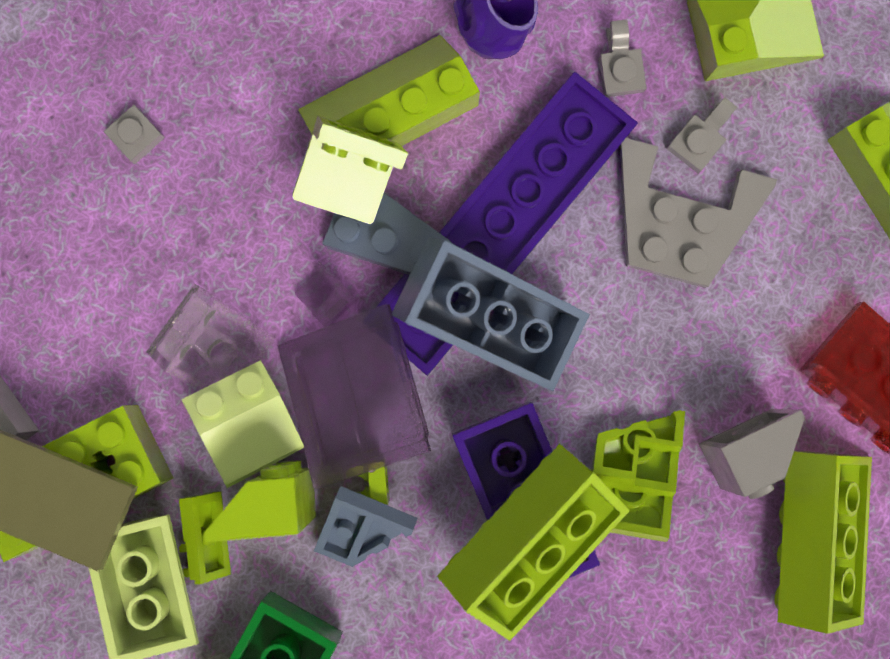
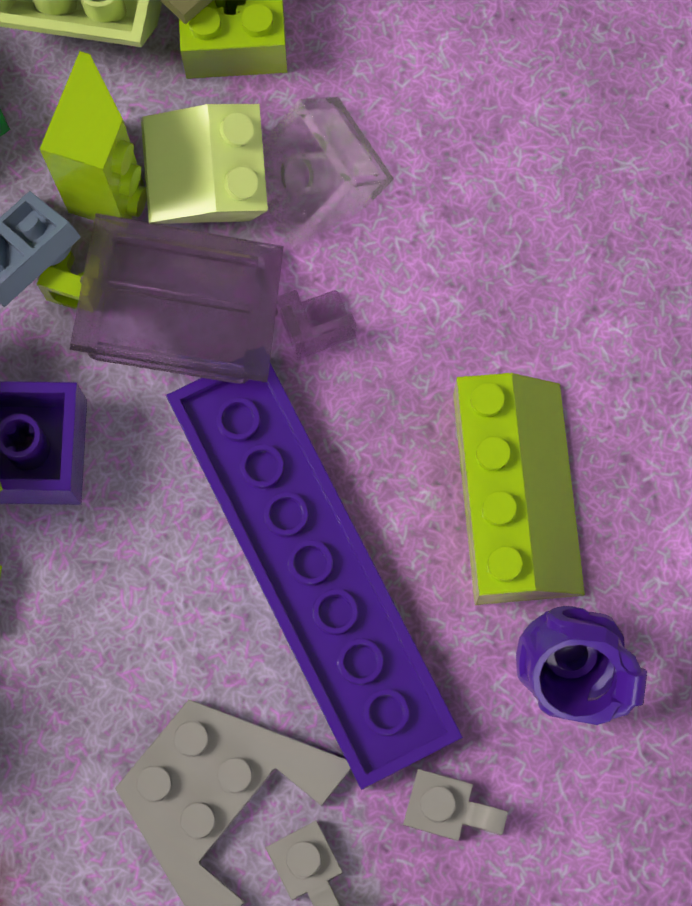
camera: 115 degrees right, 10 degrees down
(134, 134) = (606, 185): light grey plate -> none
(208, 559) = (127, 81): lime plate -> none
(346, 170) = (445, 391): bracket -> none
(390, 241) = (359, 415): sand blue wing -> none
(482, 287) = (189, 491): sand blue brick -> none

